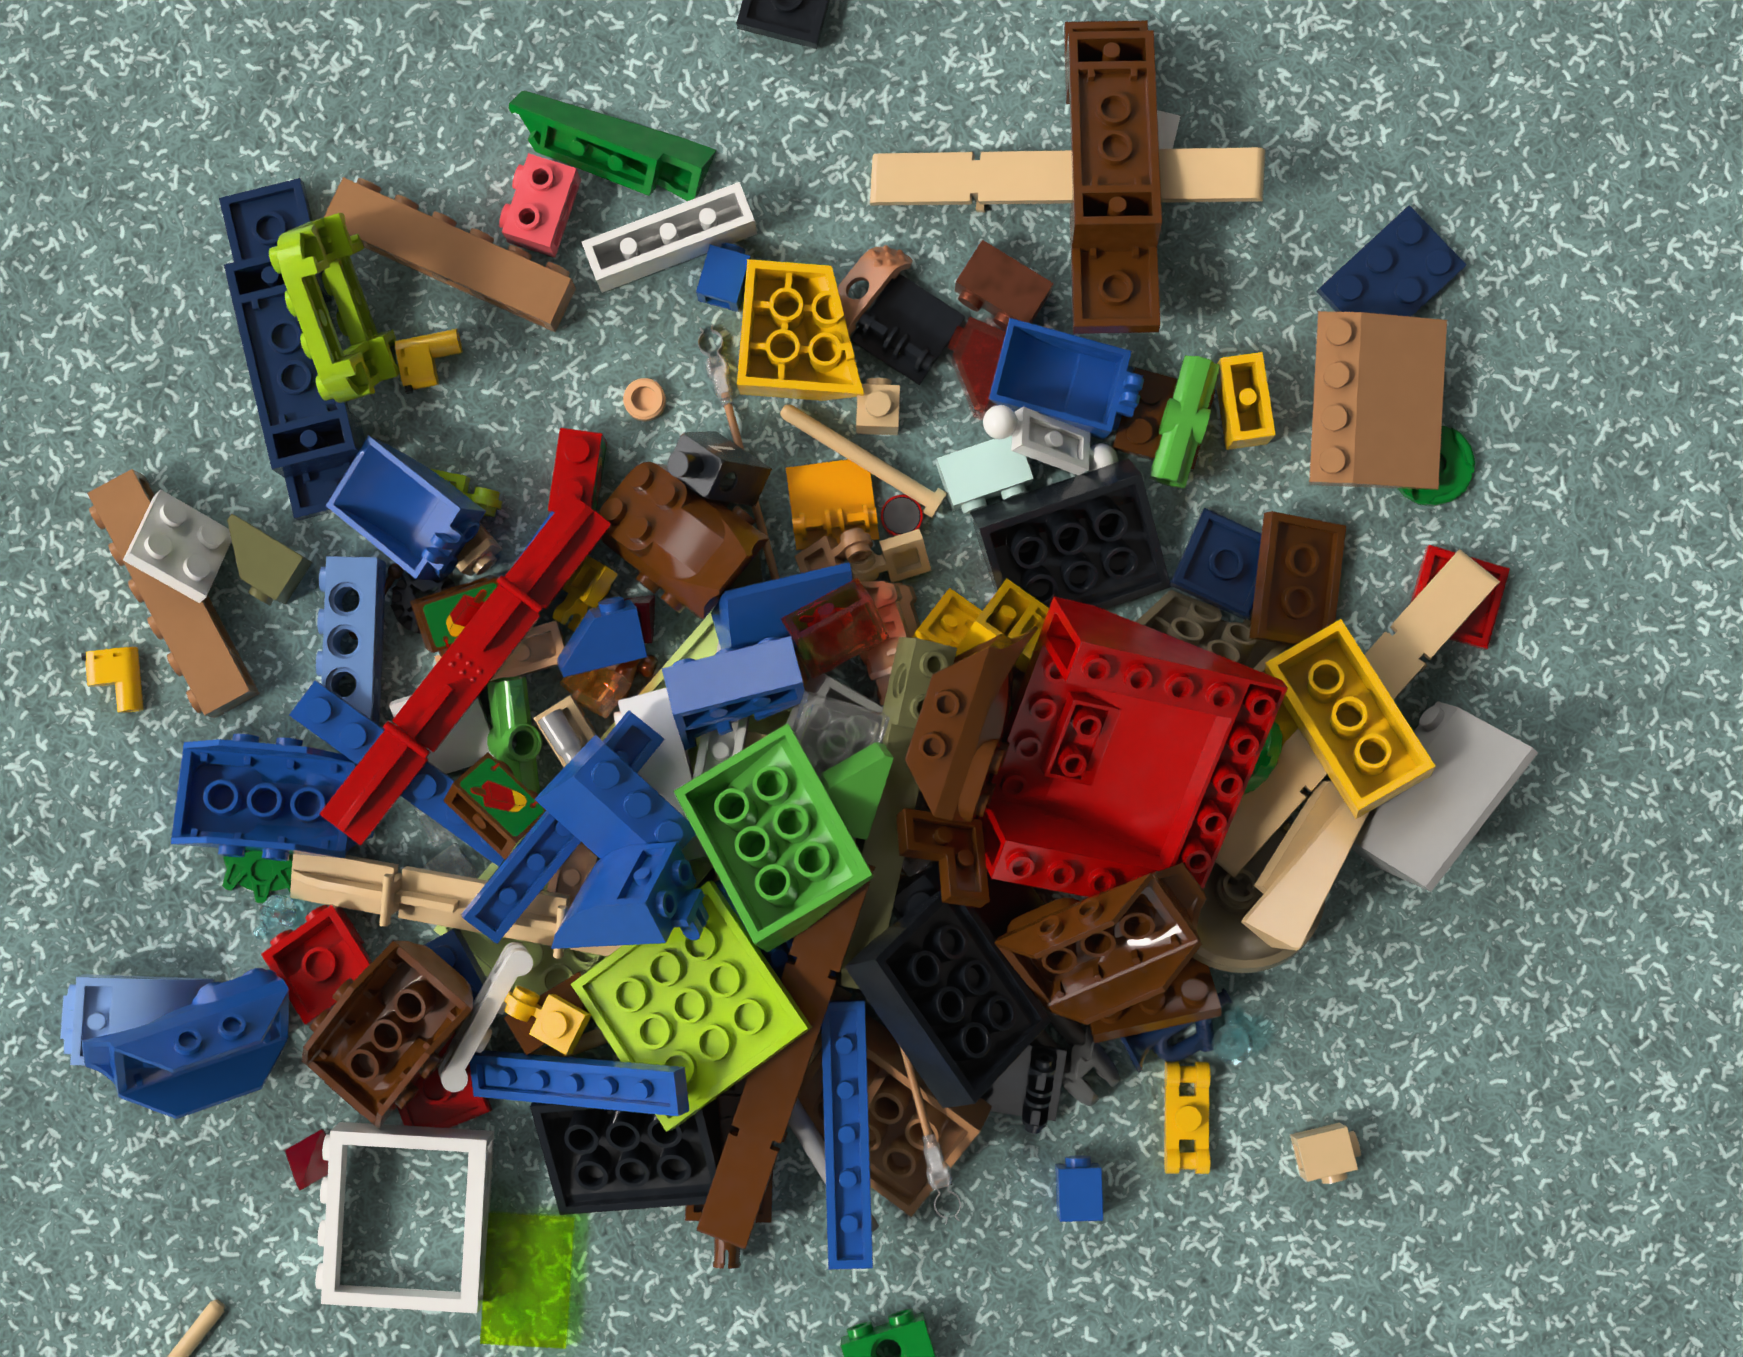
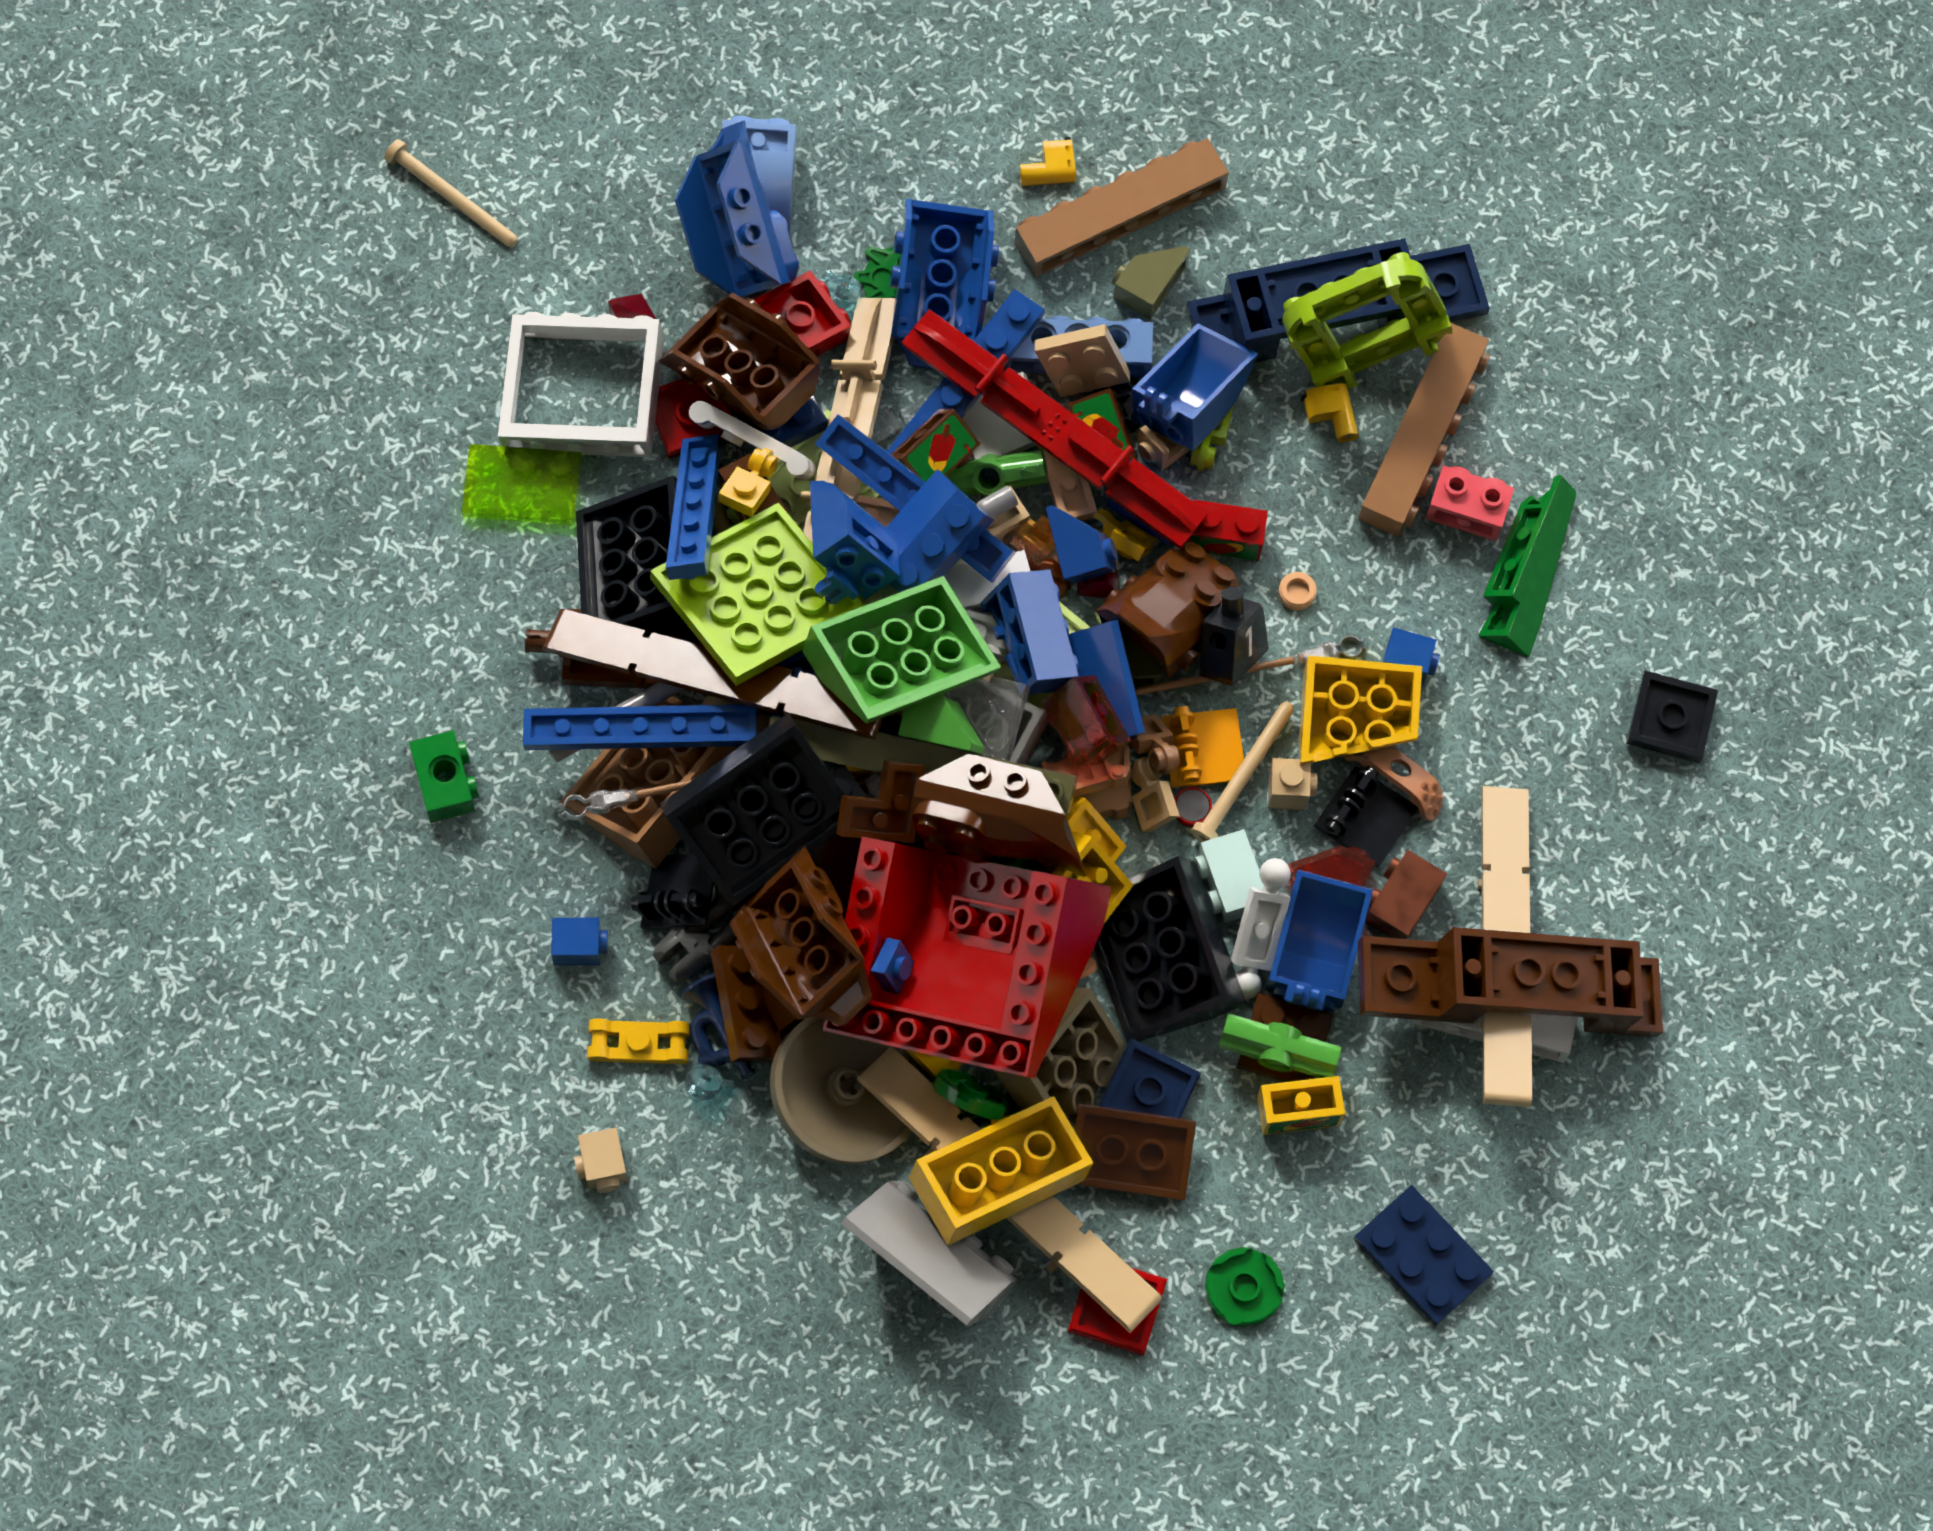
camera: 85 degrees right, 15 degrees down
(179, 546) = (1161, 207): white plate -> none
(378, 636) = (1082, 360): none -> tan plate
(669, 237) = (1443, 608): white brick -> none
(1126, 840) = (892, 965): none -> blue plate
(1303, 869) = (860, 1126): tan wedge -> none
(1377, 401) = (1301, 1224): medium nougat slope -> none

